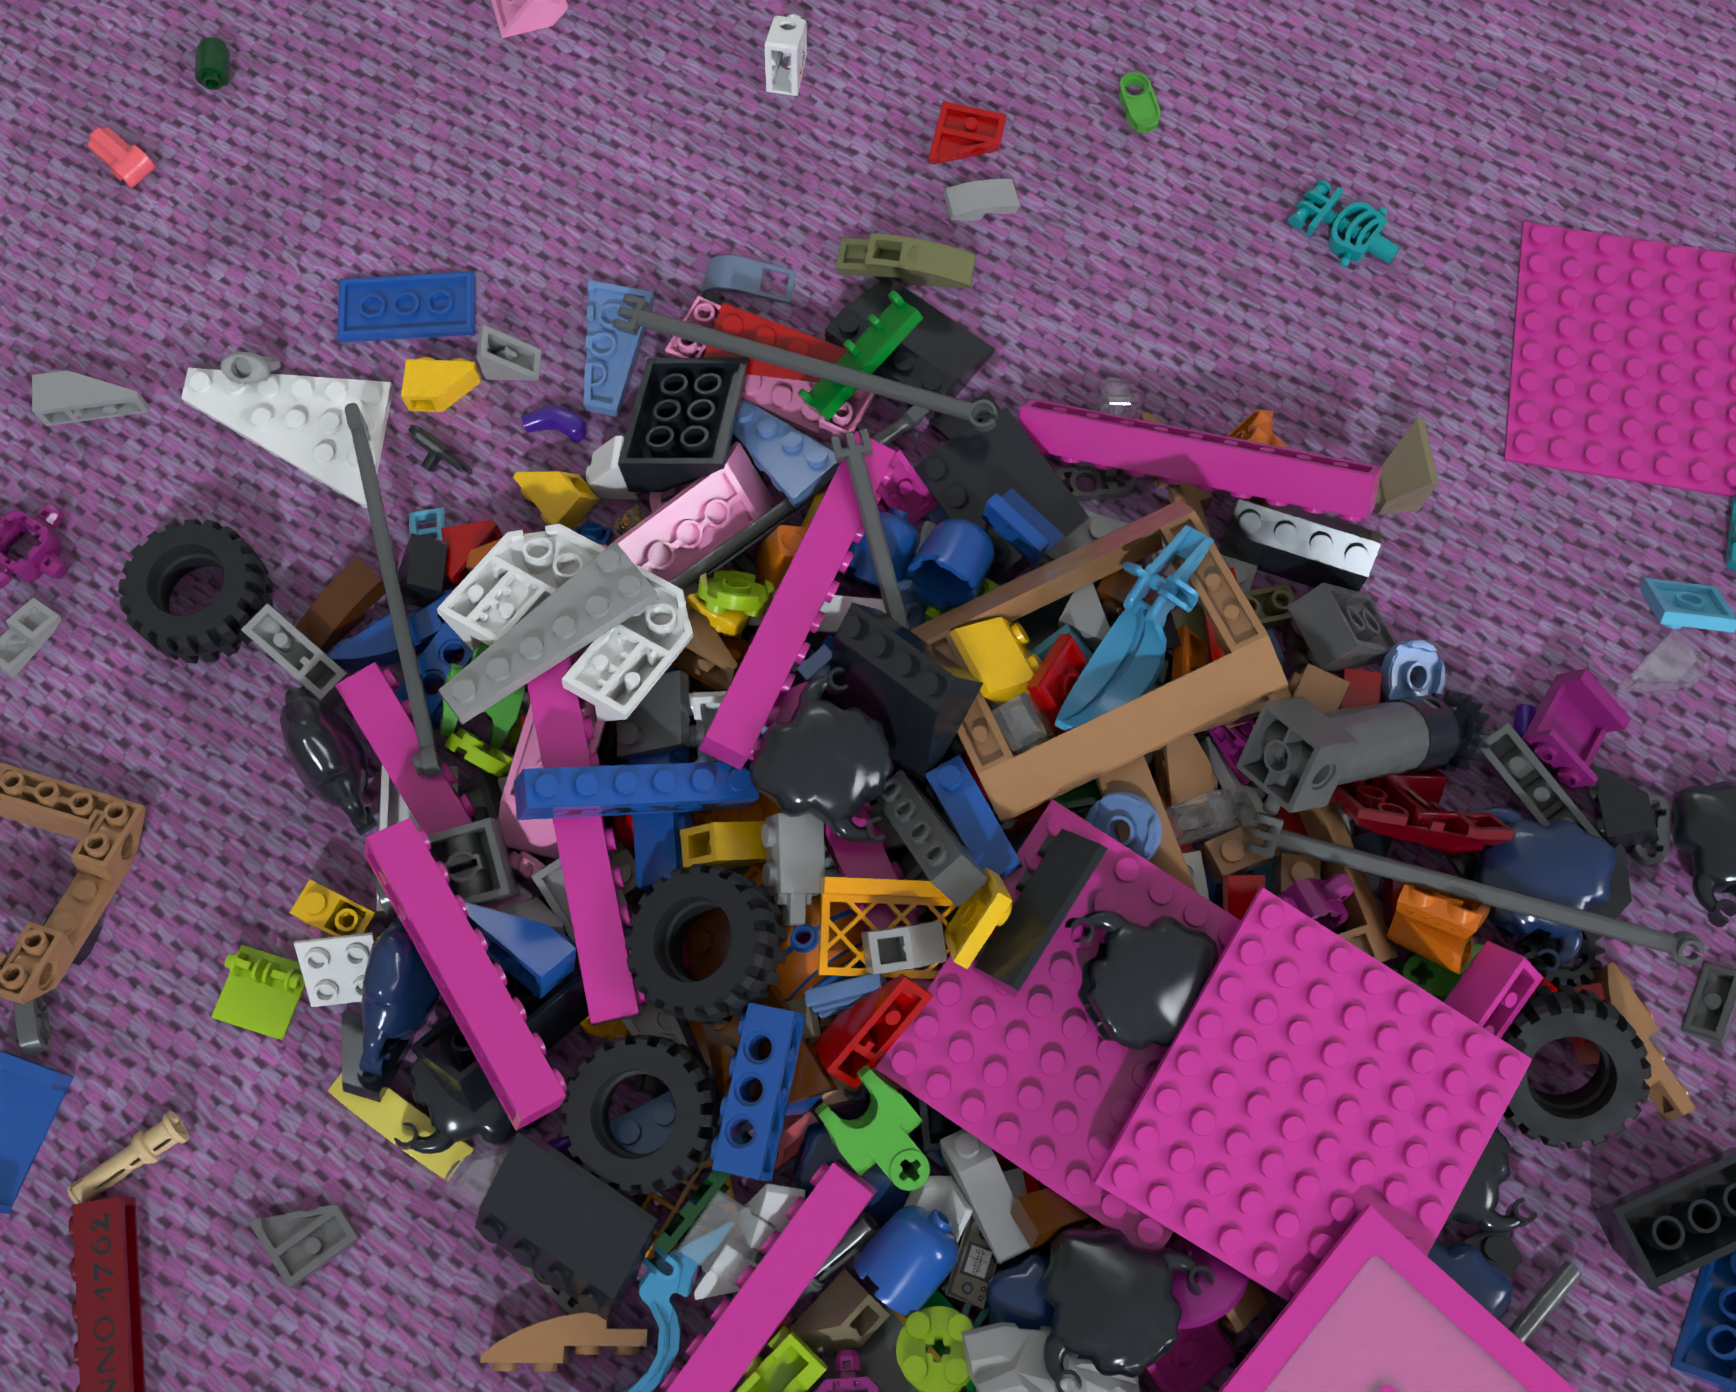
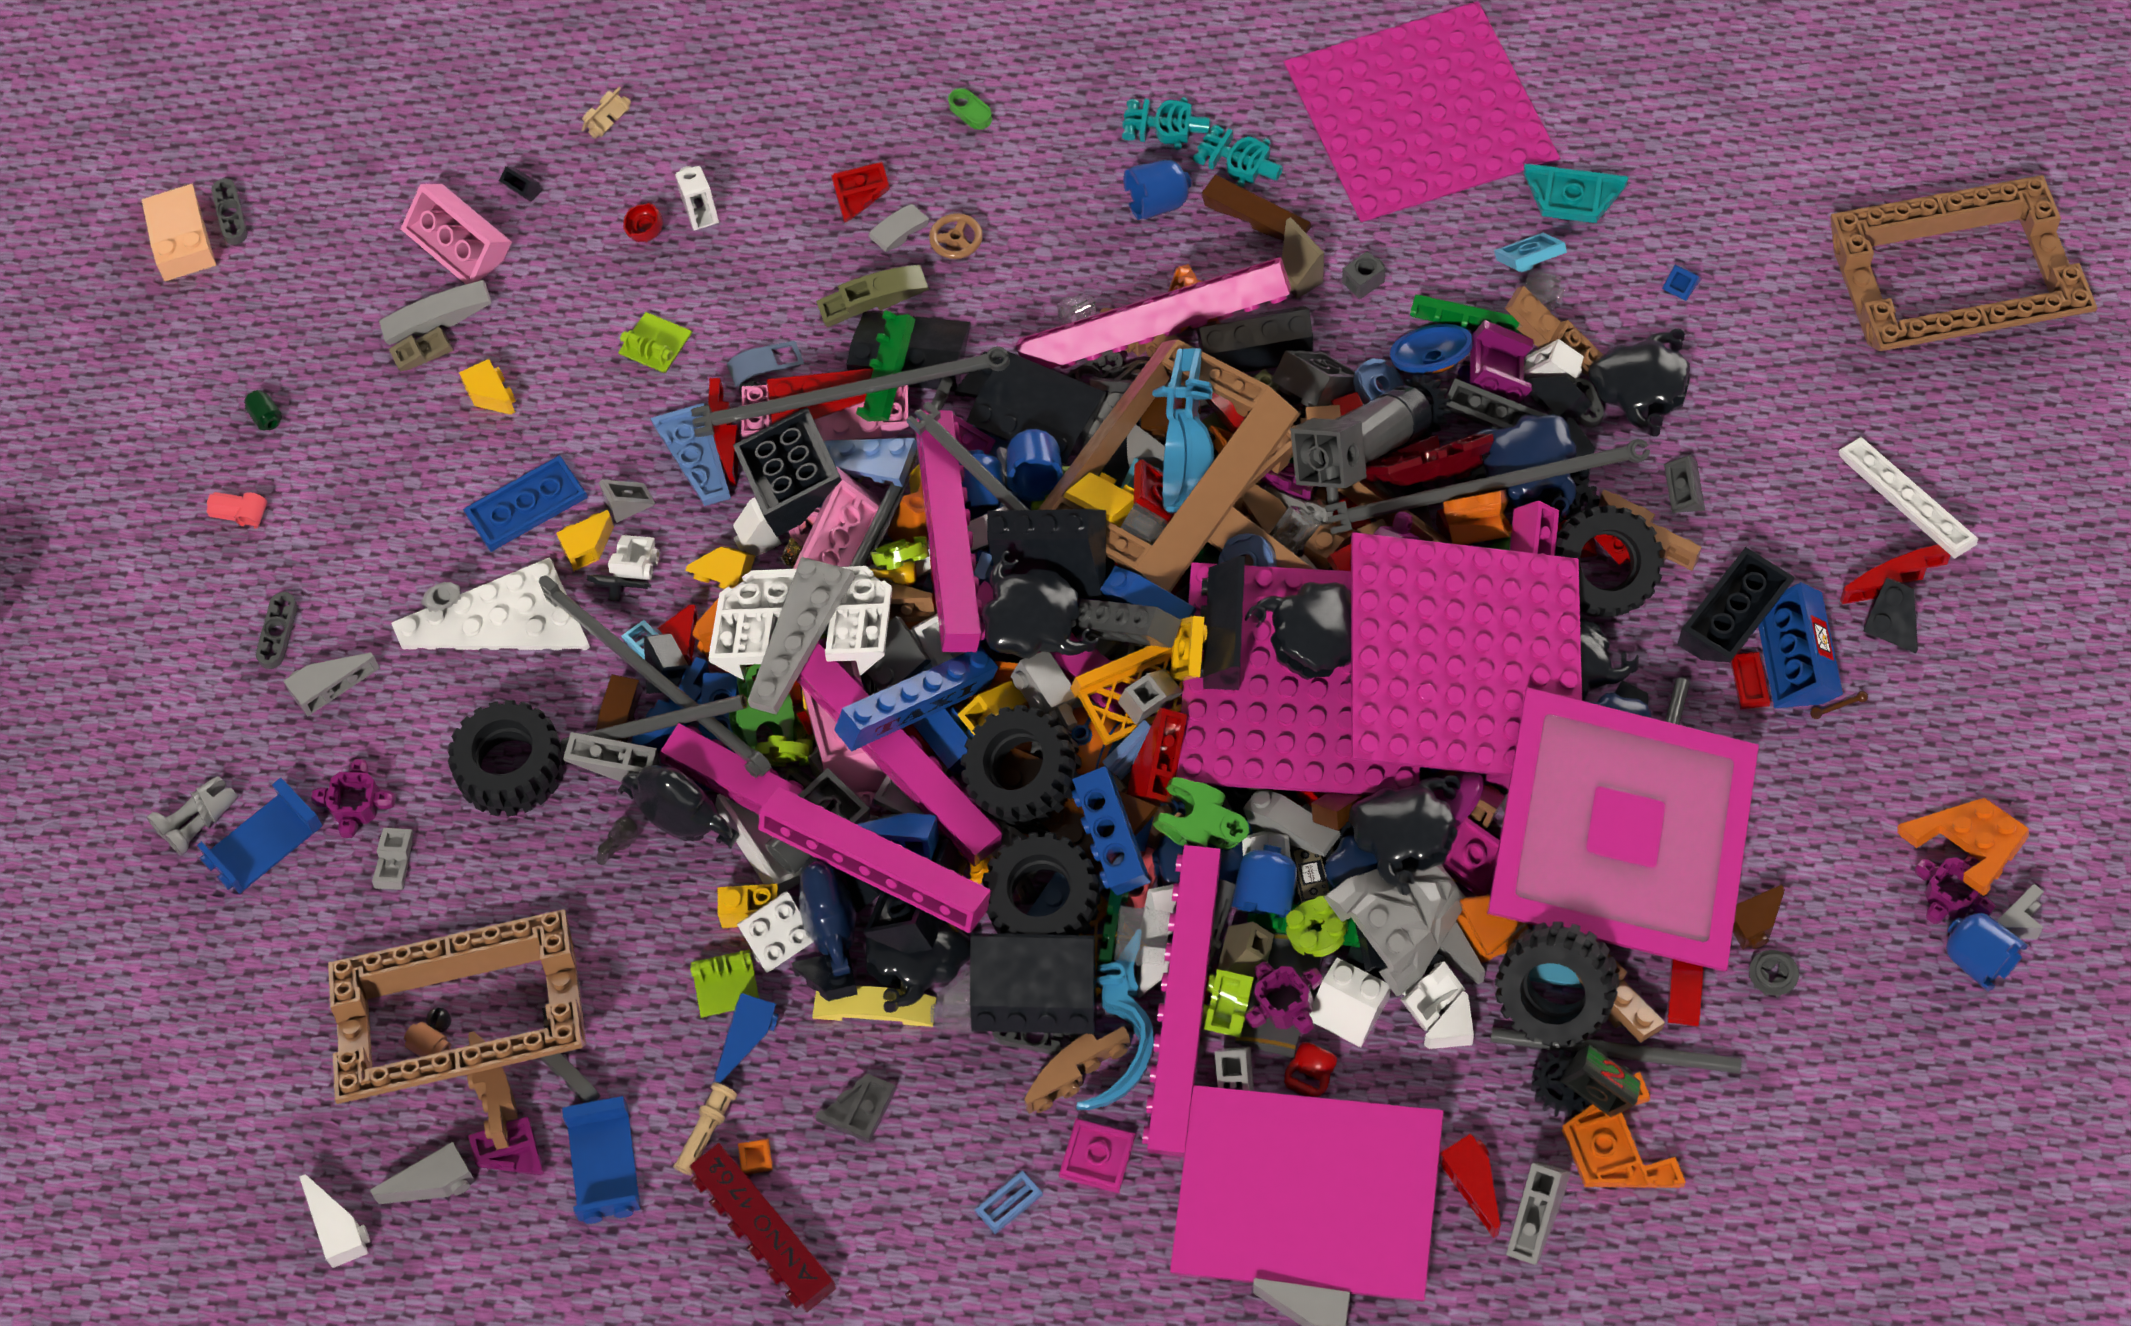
camera: 25 degrees left, 10 degrees down
(71, 301) = (271, 620): none -> dark grey beam
(162, 1227) = (755, 1156): none -> orange tile
(242, 1069) = (747, 1028): none -> blue slope
(257, 750) = (621, 836): none -> clear smoke piece
(363, 646) = (668, 719): none -> dark grey piece
(402, 79) = (415, 352): none -> dark tan slope
(445, 155) = (486, 388): none -> yellow slope
(450, 44) = (439, 309): none -> light grey slope
(472, 431) = (634, 558): none -> white cylinder
(556, 419) = (689, 520): dark purple arm -> none
(647, 195) = (654, 342): none -> lime hinge
(650, 342) = (725, 434): none -> red slope
(721, 50) = (643, 217): none -> red hair
(1021, 525) = (1064, 418): blue panel -> none
(1034, 256) = (955, 239): none -> medium nougat piece
(1121, 506) = (1120, 378): none -> flat silver wing
(1291, 300) = (1156, 188): none -> blue cylinder
(1383, 375) = (1242, 204): none -> reddish brown slope
(1421, 328) = (1254, 156): none -> teal torso
(1462, 538) = (1362, 284): none -> dark grey brick
(1501, 665) = (1431, 349): none -> blue dish
(1563, 642) = (1459, 314): none -> green hinge
(1639, 762) = (1553, 361): none -> white slope
(1659, 1317) = (1750, 681): none -> red tile
(1660, 733) = (1545, 328): none -> medium nougat slope

